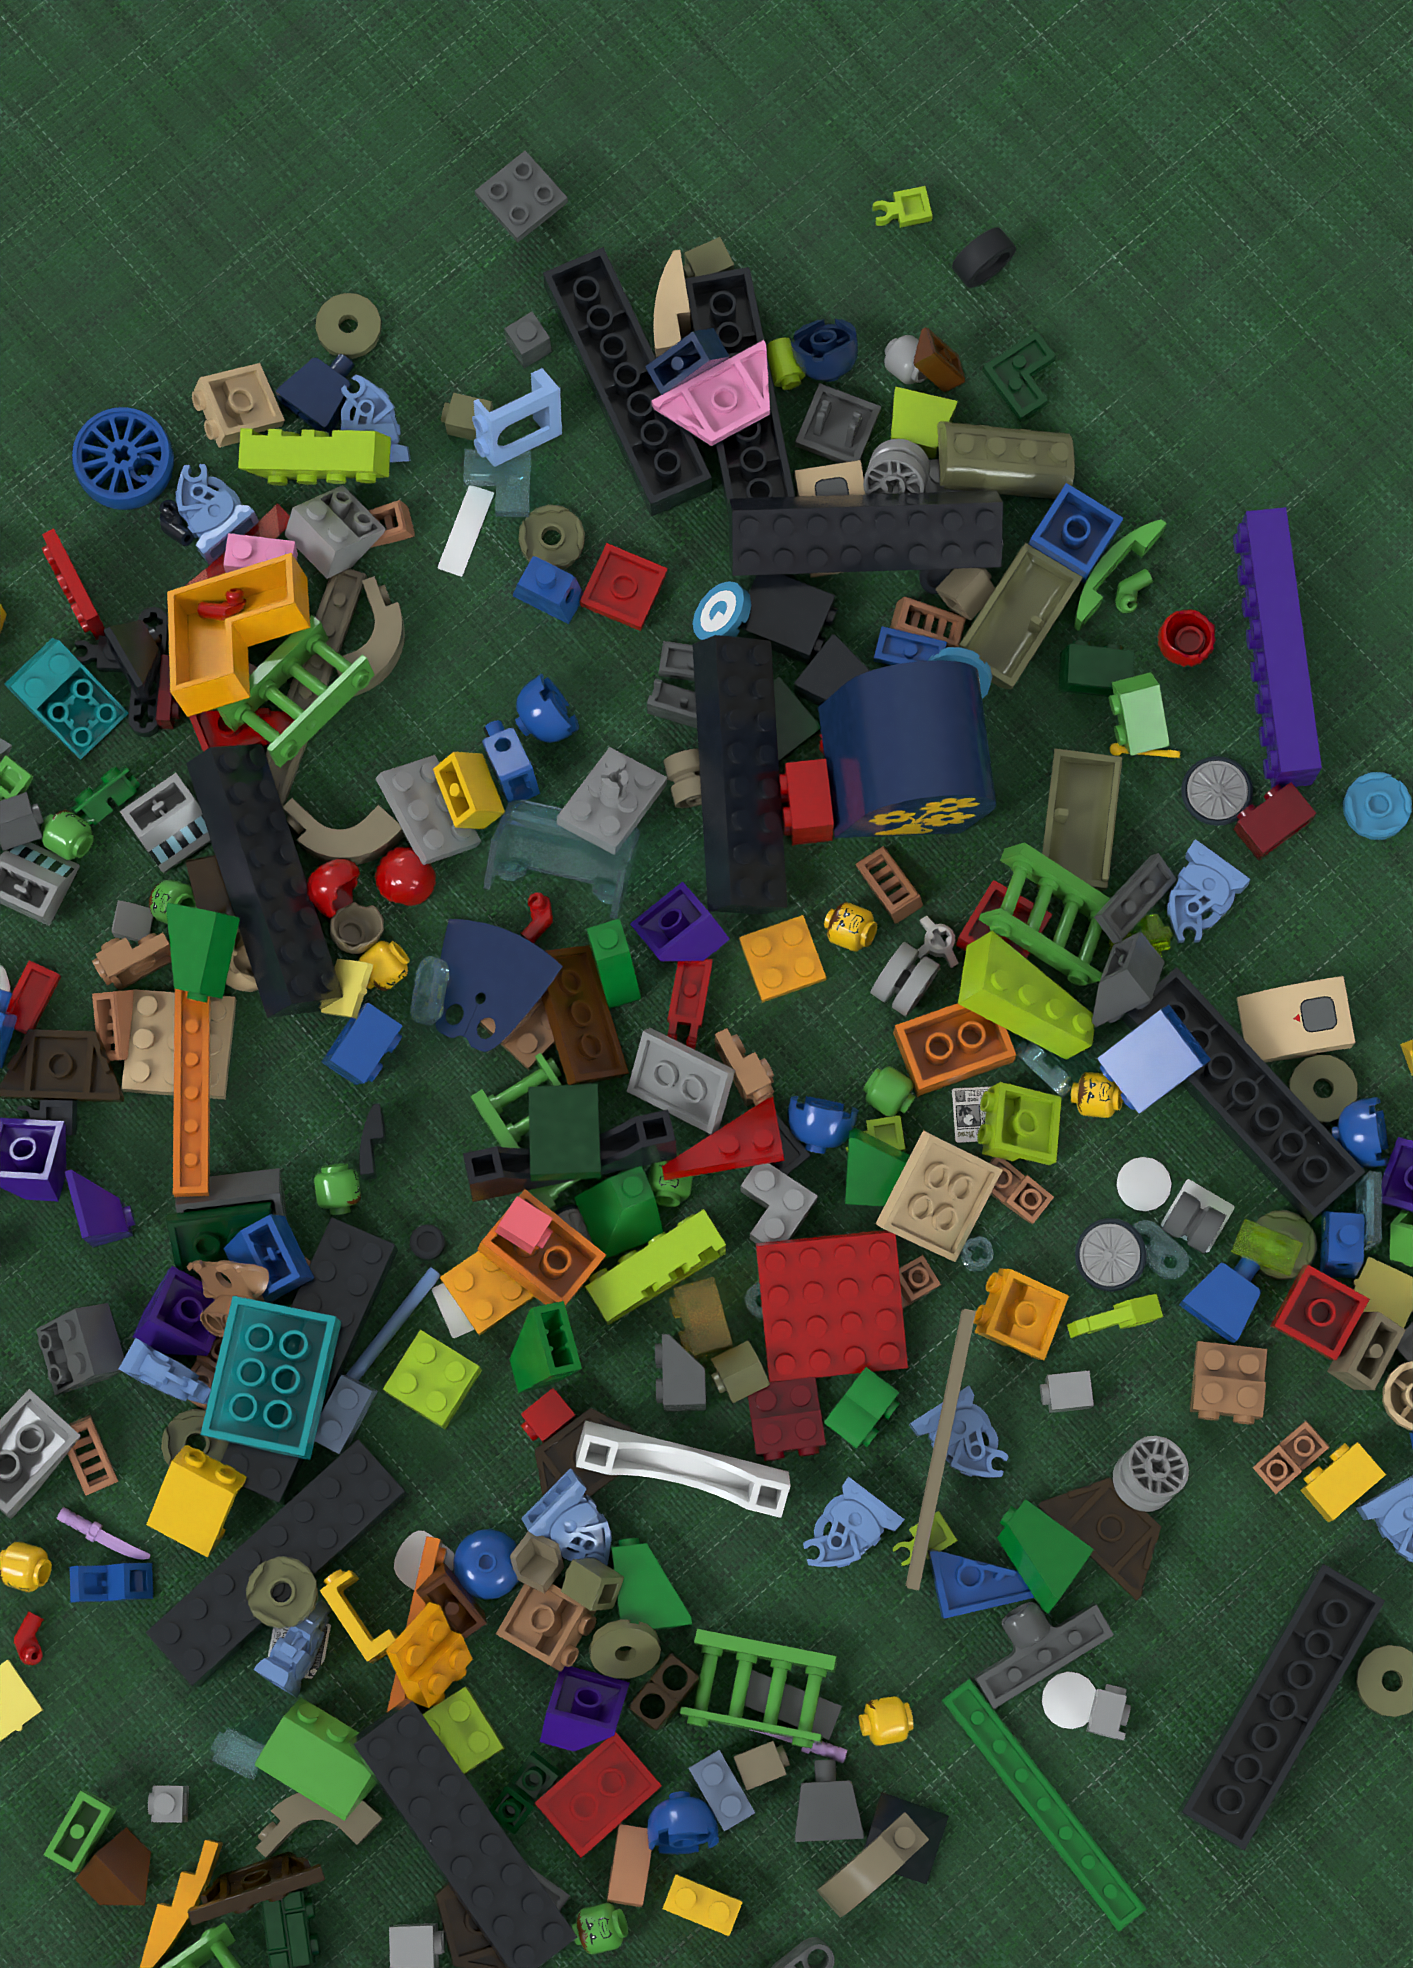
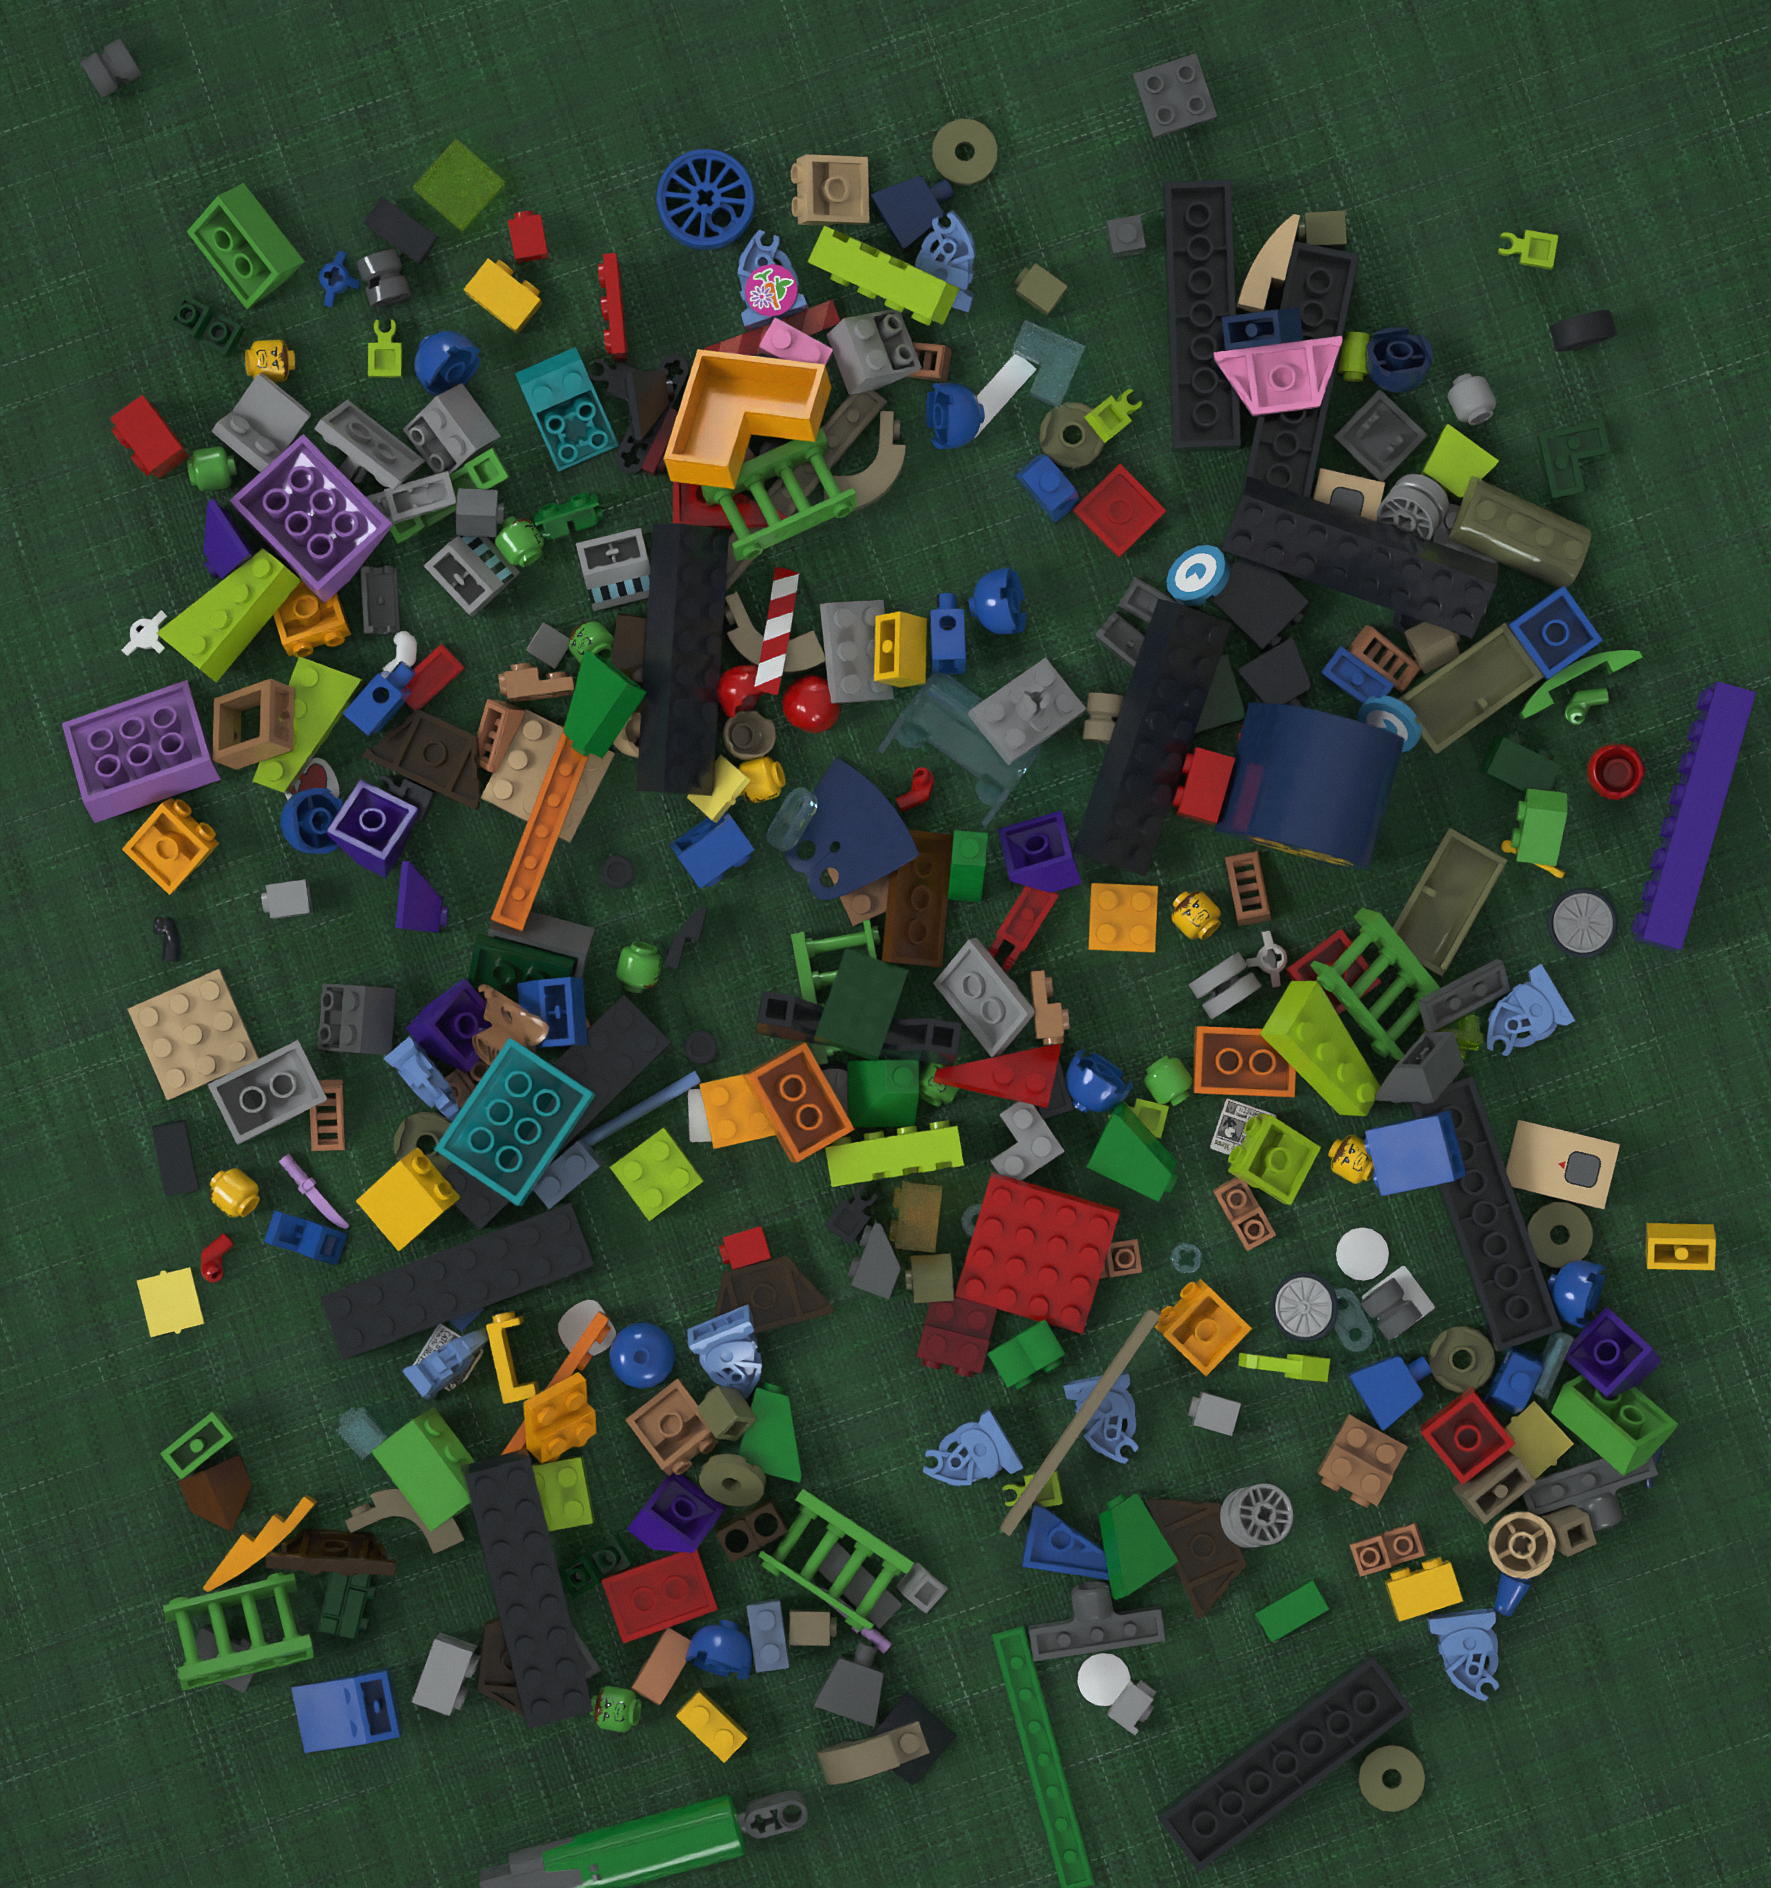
camera: 20 degrees right, 10 degrees up
(169, 1804) = (283, 1451): light grey brick -> none
(172, 523) = (727, 281): black arm -> none
(215, 512) = (771, 290): none -> sticker
(226, 609) = (743, 388): red arm -> none
(281, 1108) = (617, 872): none -> black tile
(297, 1607) = (456, 1332): olive tile -> none
(344, 820) = (777, 631): none -> sticker
(432, 559) = (954, 415): none -> blue cylinder
(457, 1604) = (601, 1382): reddish brown slope -> none
(525, 1226) = (792, 1078): coral brick -> none
(537, 1561) = (686, 1374): dark tan panel -> none
(542, 402) = (1114, 313): light blue panel -> none
(544, 1349) = (766, 1191): green slope -> none
(581, 503) = (1112, 415): none -> lime plate
(636, 1348) = (848, 1218): none -> black plate
(737, 1480) = (800, 1310): white arch -> none
(854, 1682) = (921, 1588): none -> light grey slope
(886, 1720) = (935, 1633): yellow head -> none
(938, 361) = (1498, 414): reddish brown slope -> none
(939, 1196) = (1172, 1197): tan plate -> none
(1055, 1077) = (1321, 1128): clear light blue plate -> none
(1224, 1556) = (1291, 1611): none -> green tile
(1266, 1247) = (1445, 1359): clear neon green hips -> none
(1274, 820) = (1621, 973): dark red brick -> none
(1377, 806) = (1722, 996): dark azure tile -> none

